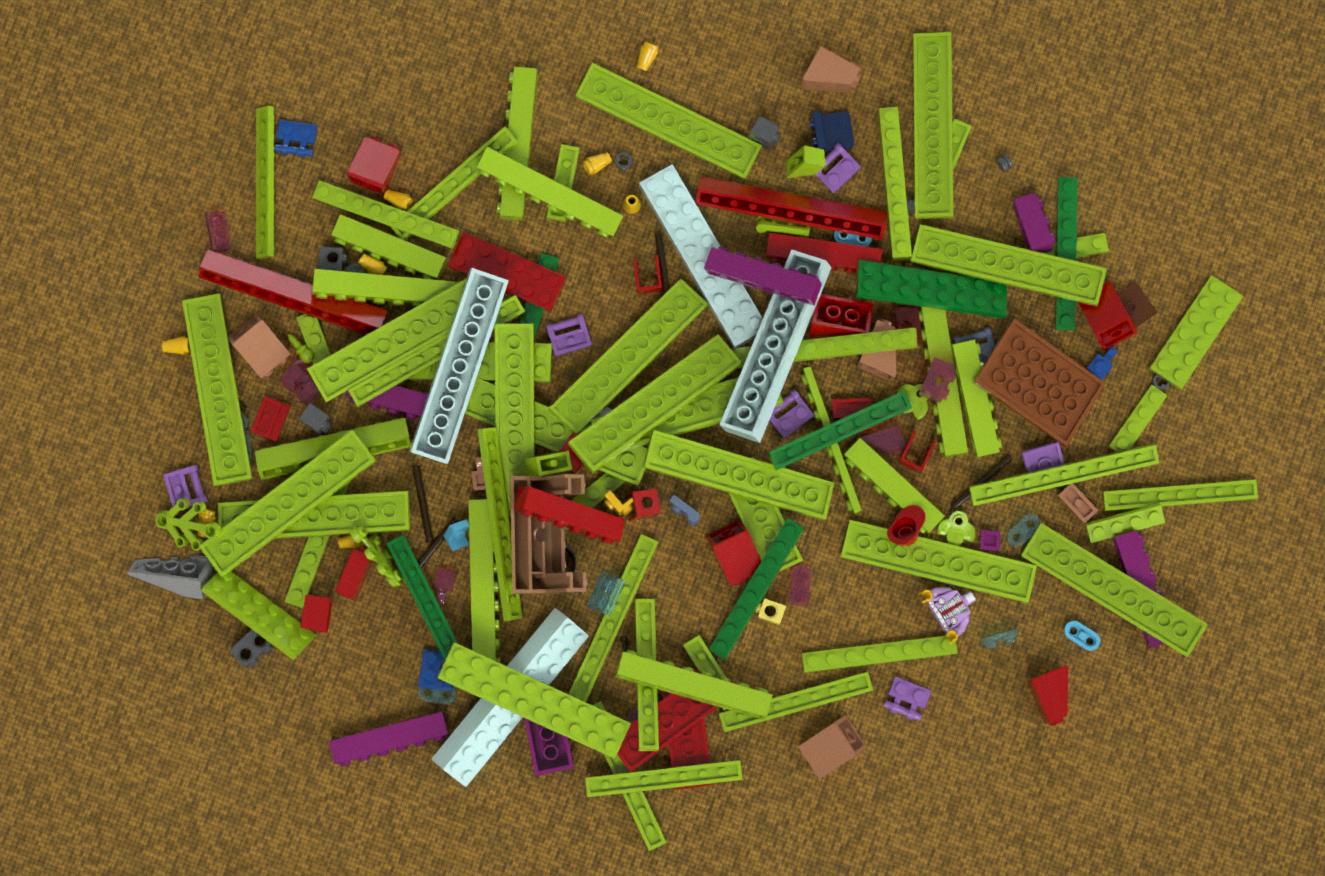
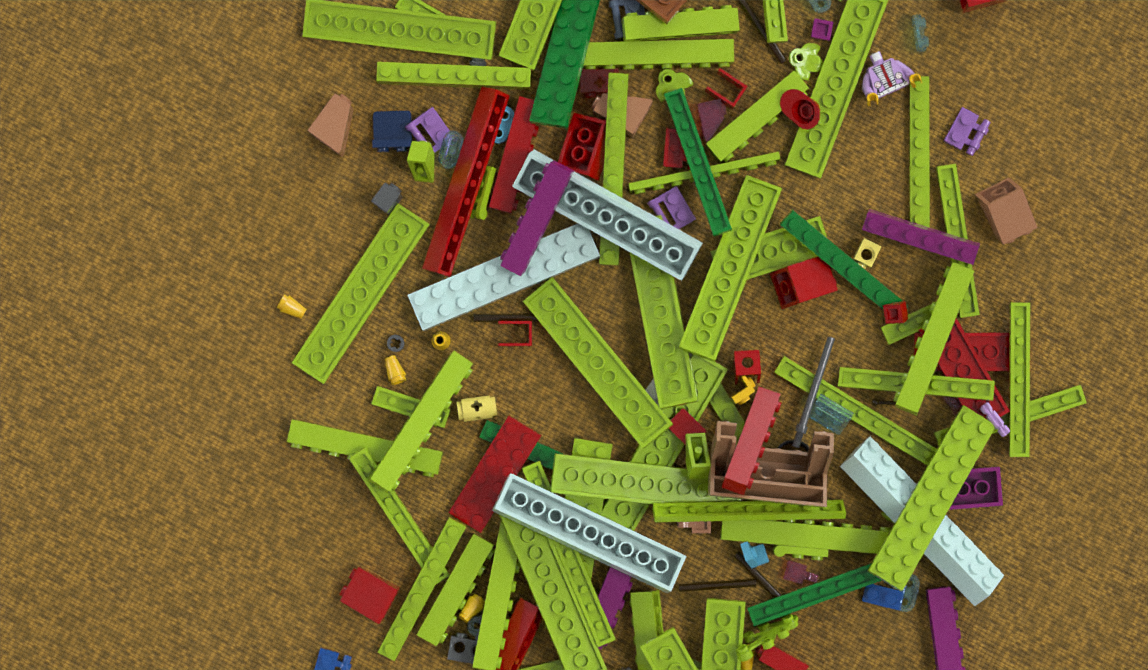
camera: 80 degrees left, 5 degrees up
(398, 200) = (407, 574): yellow cone -> none
(464, 580) = (799, 552): none -> lime plate
(569, 256) = (486, 407): none -> light yellow piece
(569, 341) = (572, 419): medium lavender plate -> none
(588, 566) = (801, 428): none -> dark grey bar
(620, 757) = (994, 418): none -> lavender axle
(654, 403) = (650, 342): lime plate -> none
(680, 507) = (754, 330): sand blue plate -> none
(715, 647) = (895, 312): none -> red slope
(794, 662) = (921, 236): none -> magenta brick
(800, 585) = (844, 221): clear pink plate -> none
(822, 189) = (450, 146): none -> clear light blue plate
(938, 369) = (649, 59): clear pink brick -> none

